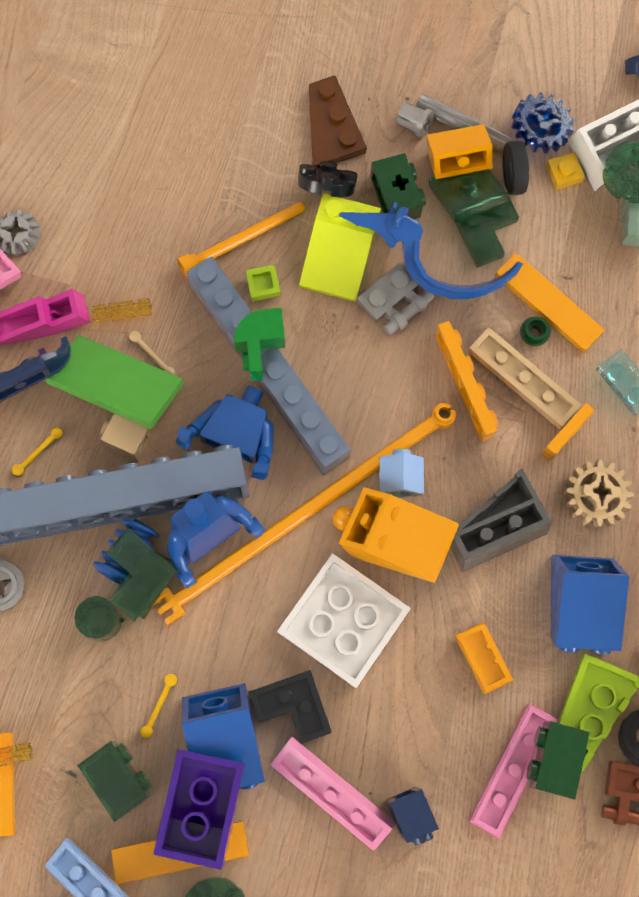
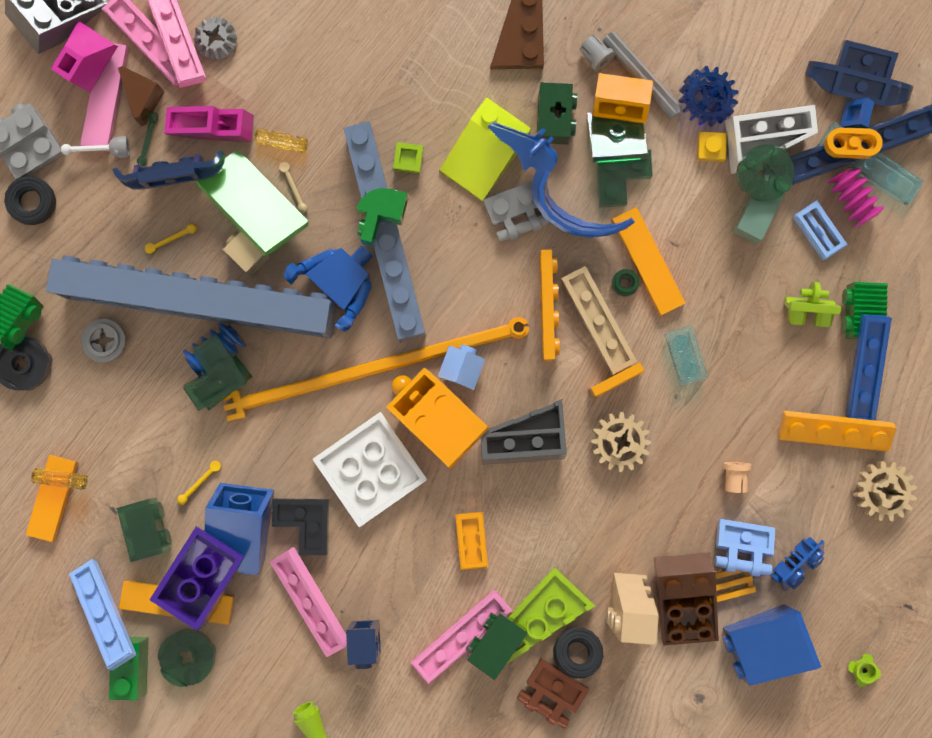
camera: 25 degrees right, 10 degrees up
(98, 618) = (170, 397): clear green piece -> none
(188, 261) = (354, 117): light orange piece -> none
(202, 527) = (280, 354): blue torso -> none
(327, 178) = (496, 84): black plate -> none
(515, 167) = (665, 130): black tyre -> none
(587, 603) = (573, 527): blue slope -> none

